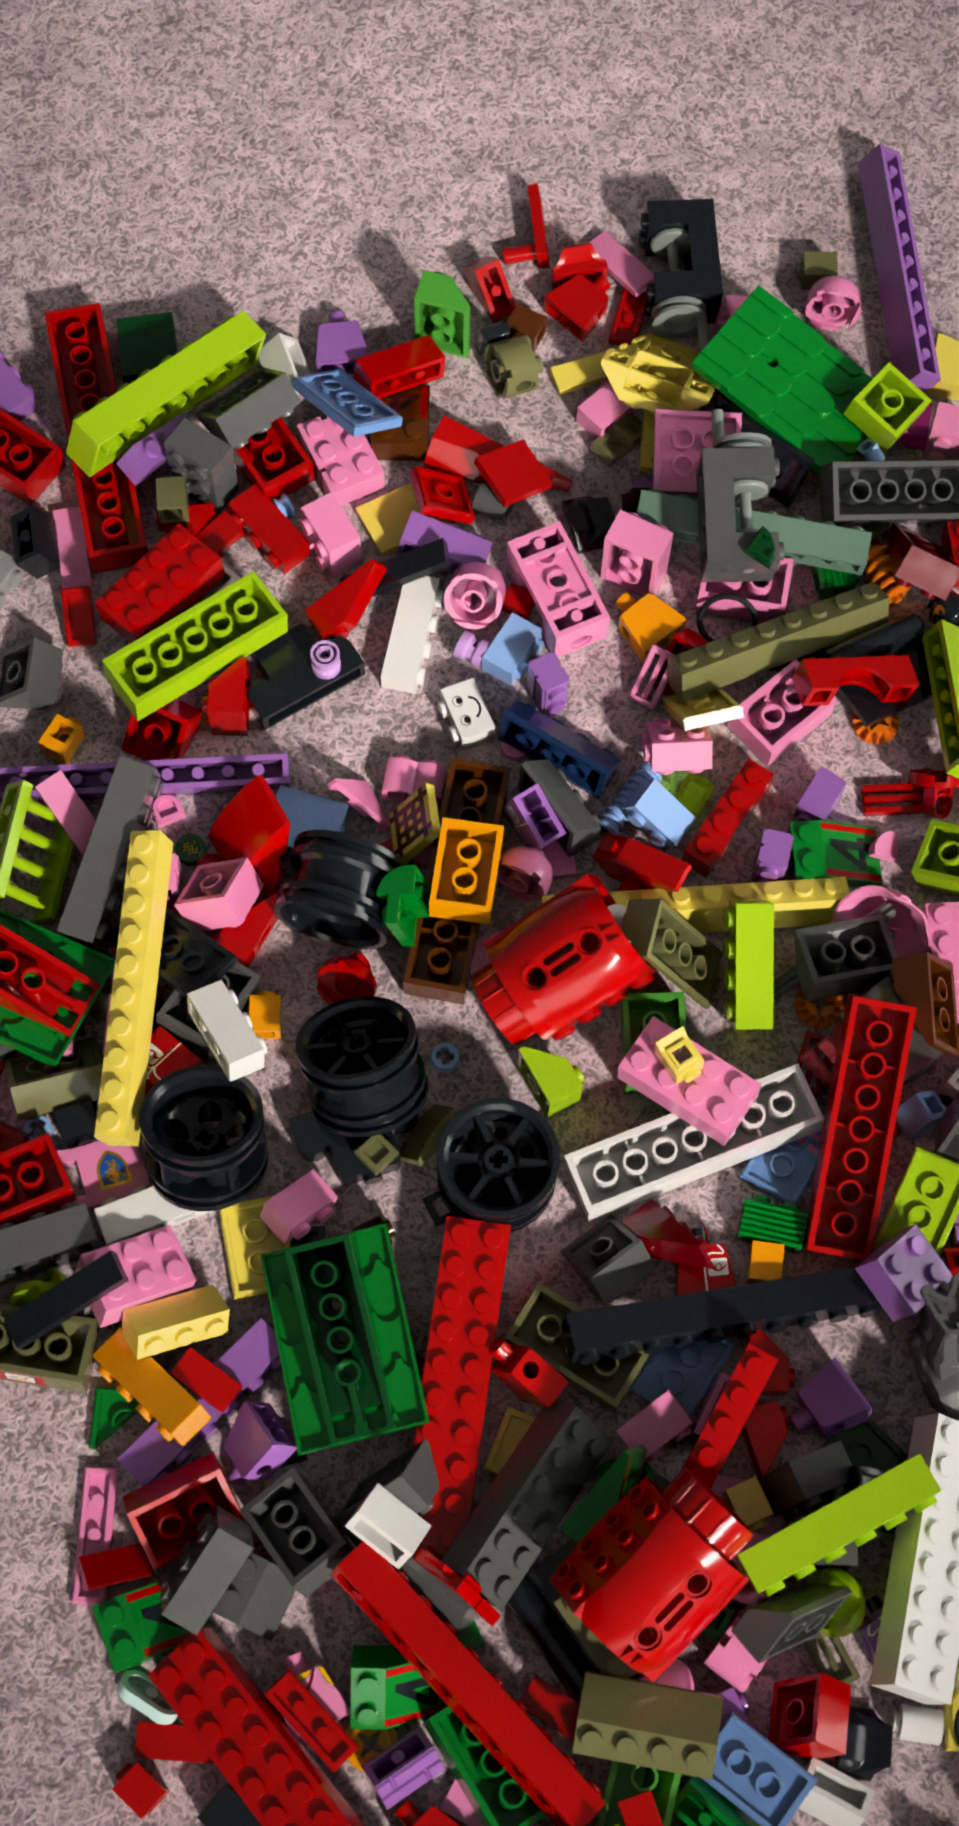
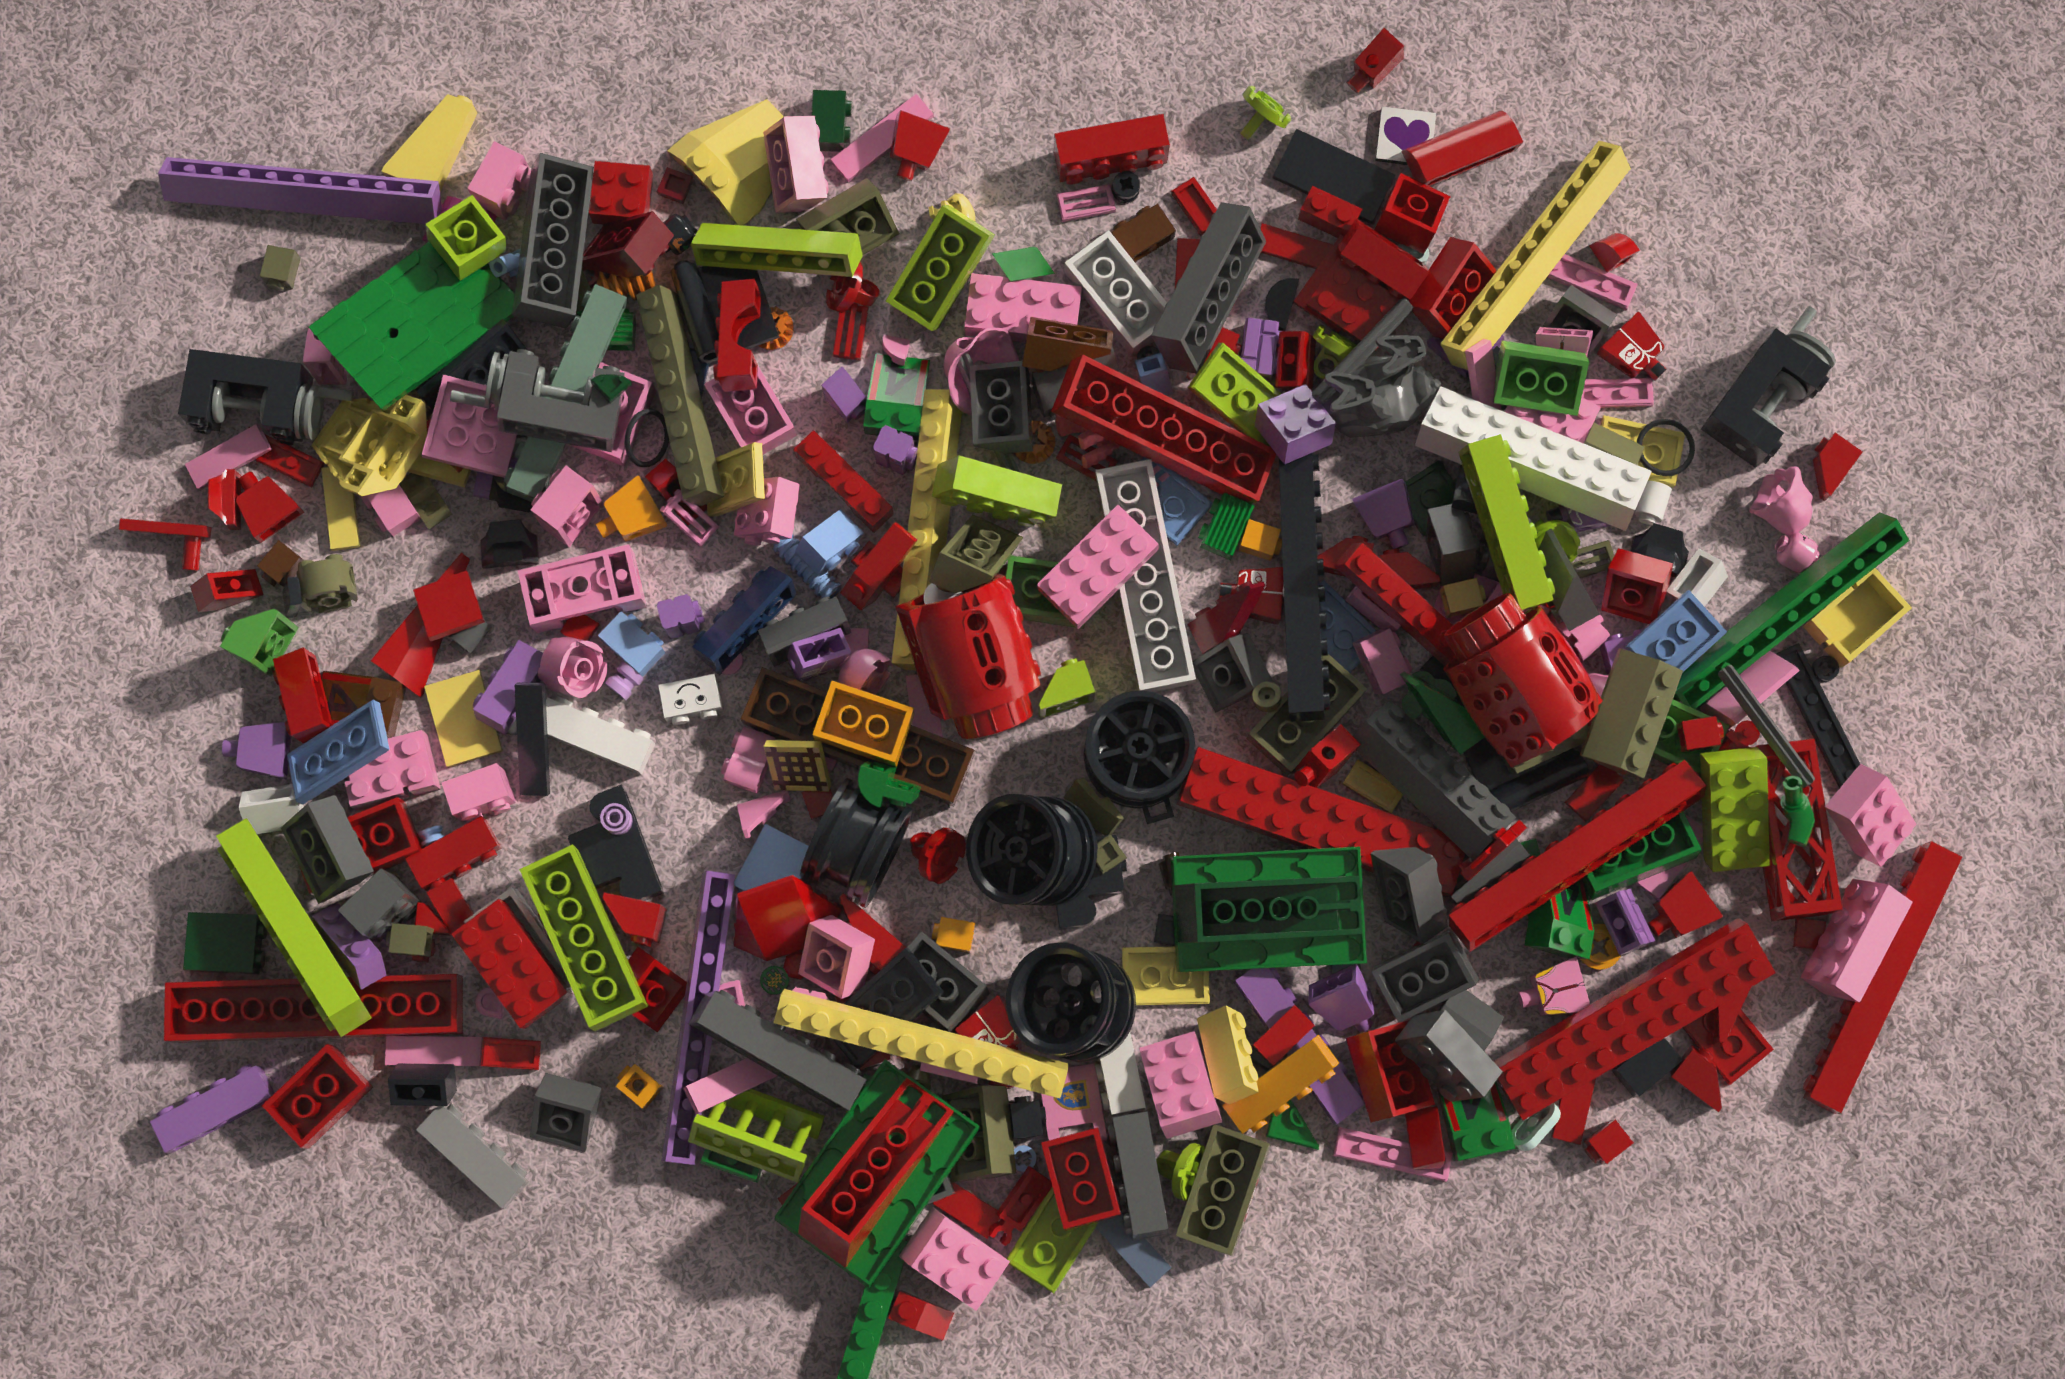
camera: 80 degrees left, 10 degrees up
(66, 1299) = (1199, 1144): black tile -> none
(226, 1030) = (979, 965): white brick -> none
(299, 1207) = (1141, 931): bright pink brick -> none
(311, 1721) = (1579, 989): red tile -> none
(344, 605) = (557, 793): red slope -> none
(388, 1526) = (1443, 894): white brick -> none
(437, 1063) = (1017, 773): light blue bush -> none
(441, 495) = (455, 679): red tile -> none
(584, 1294) = (1267, 696): none -> olive tile
(679, 1056) = (1086, 567): light yellow window -> none
(695, 794) = (815, 506): clear neon green brick -> none
(833, 302) = (321, 261): bright pink cylinder -> none

